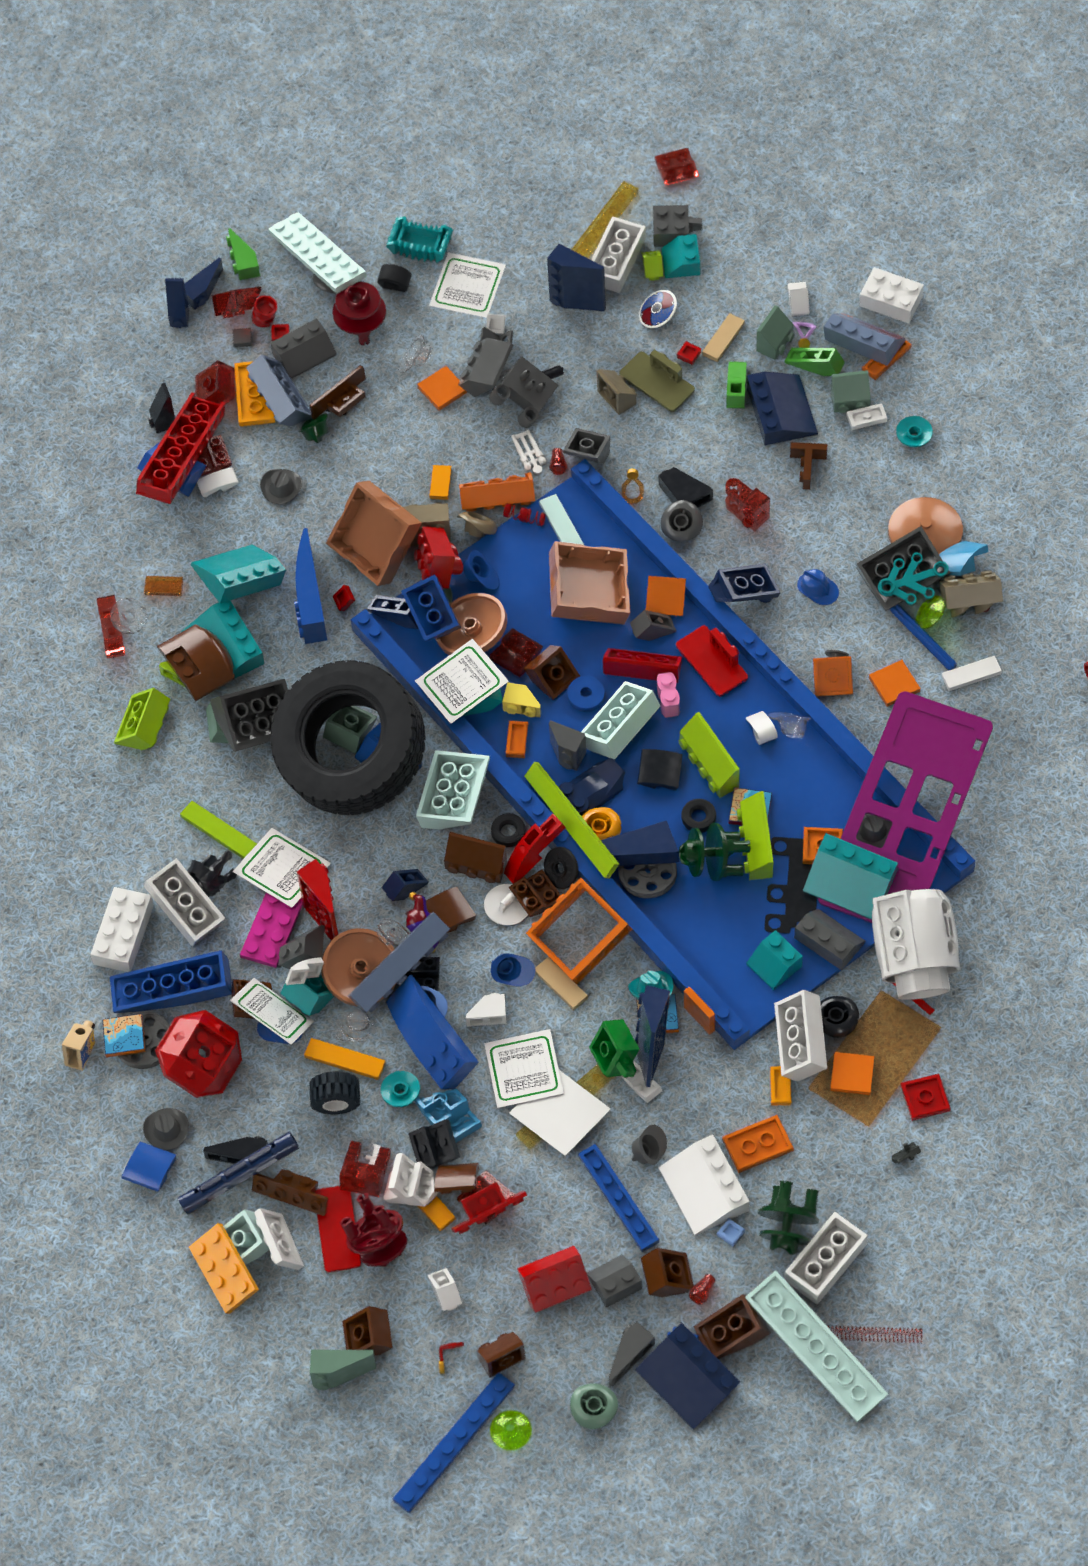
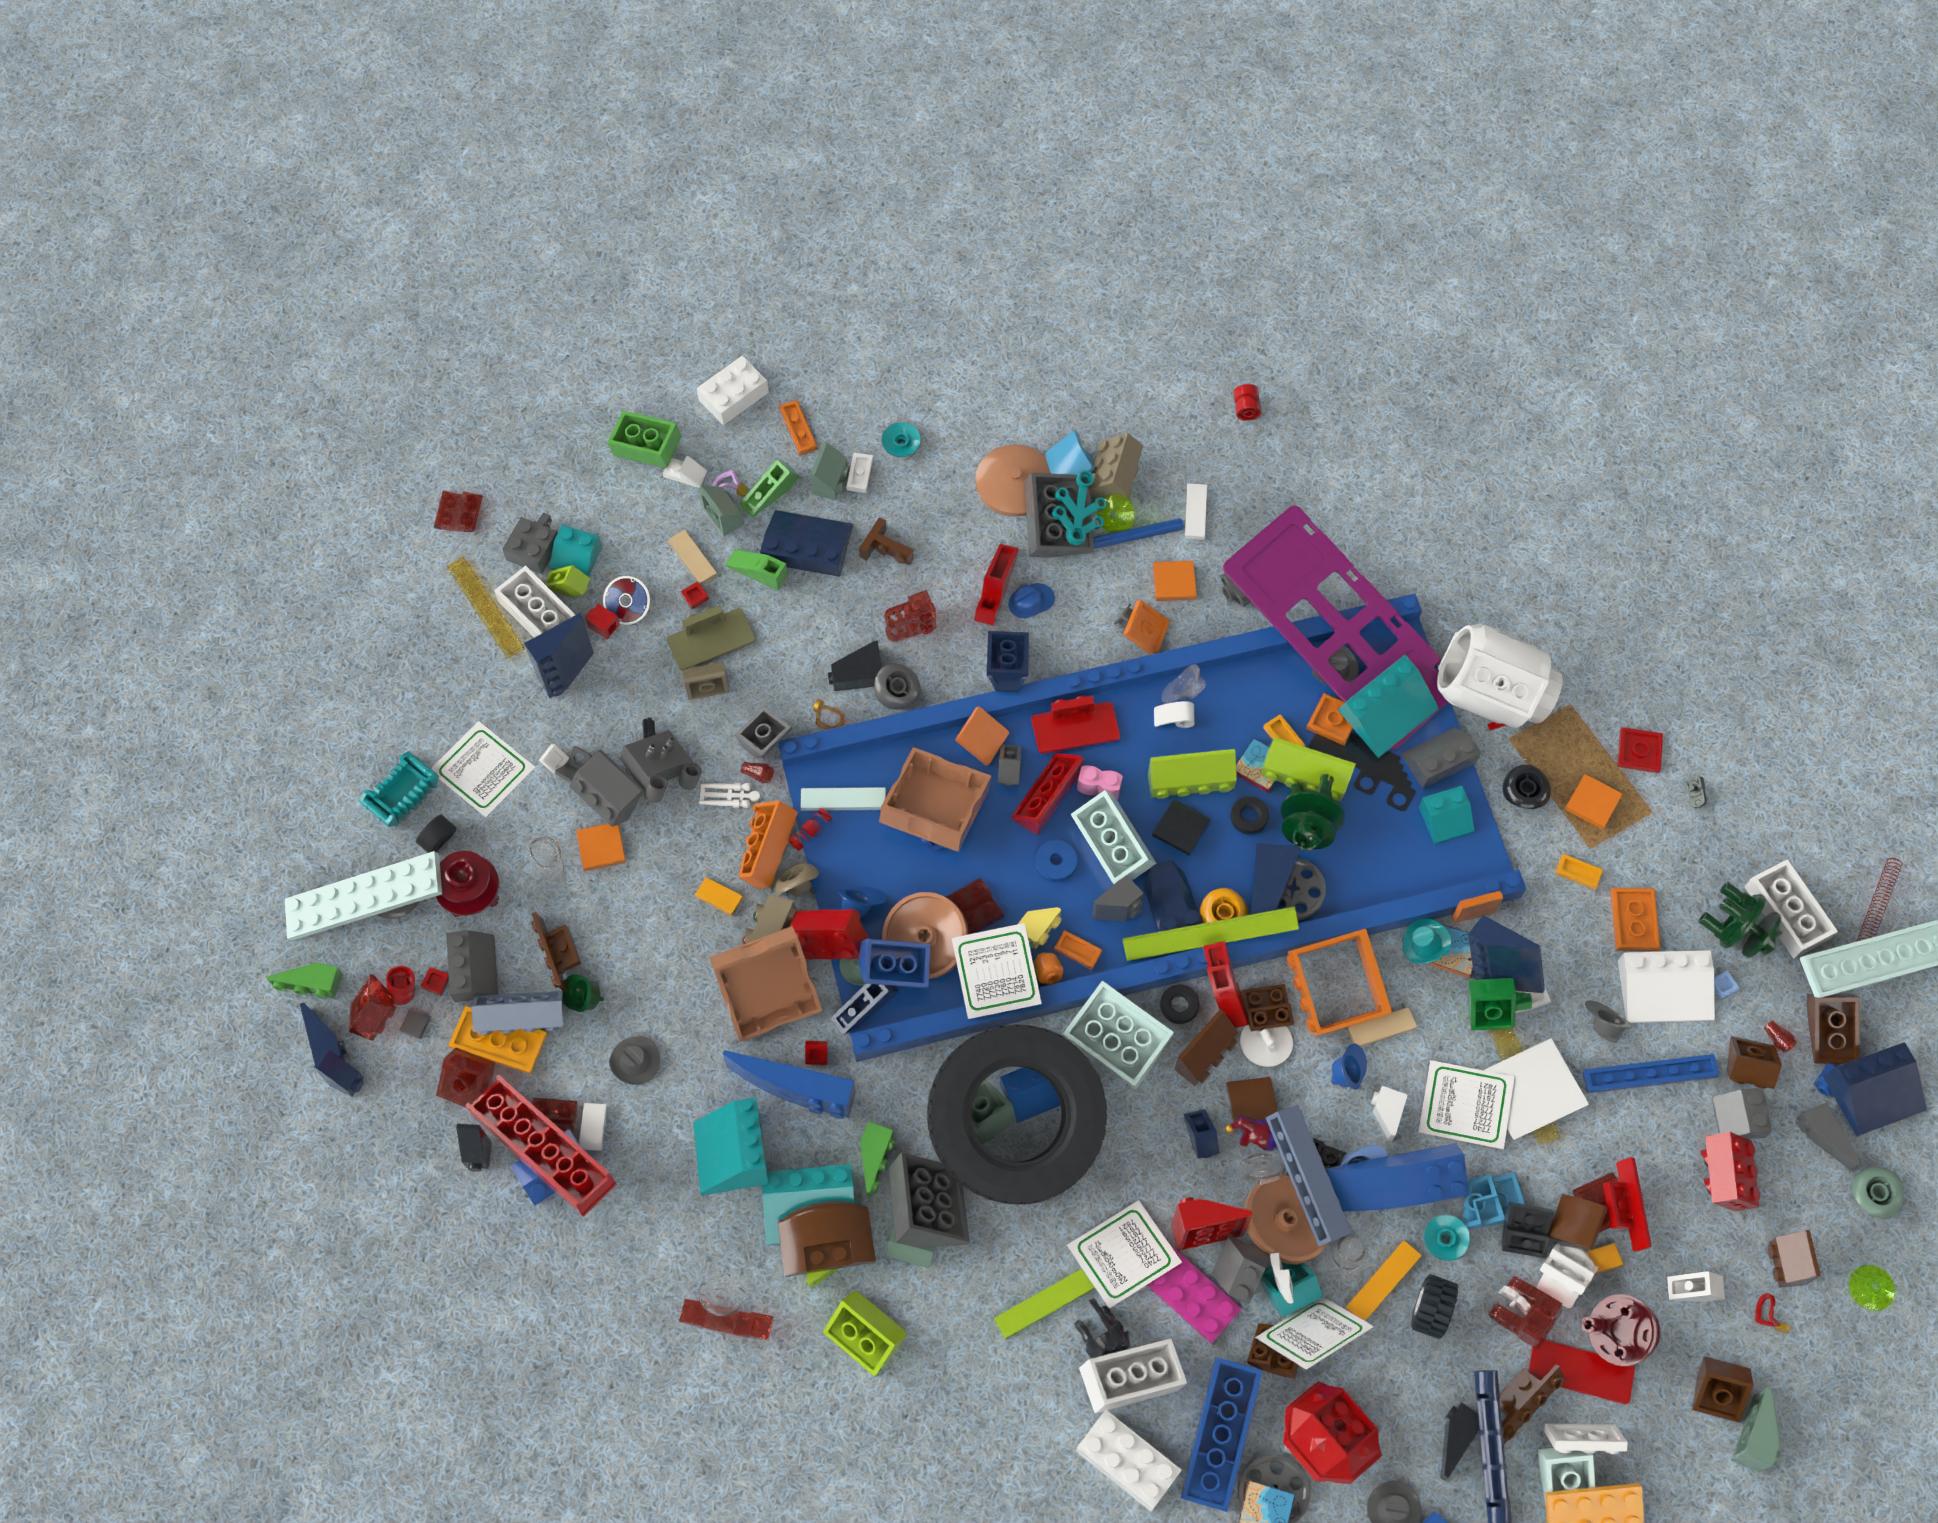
camera: 70 degrees left, 5 degrees up
(163, 585) = (697, 1239): clear orange tile -> none
(285, 666) = (874, 1148): none -> bright green slope
(453, 1442) = (1873, 1353): blue plate -> none
(487, 721) = (1048, 968): none -> orange head
(552, 671) = (1016, 881): reddish brown slope -> none
(568, 860) = (1250, 958): black wheel -> none
(631, 302) = (602, 621): none -> red brick
(786, 815) = (1281, 729): none -> light orange tile
(800, 1035) = (1544, 826): white brick -> none
(807, 254) = (644, 439): none -> bright green brick
(814, 552) = (996, 584): none -> red slope
(862, 337) = (768, 435): sand blue slope -> none

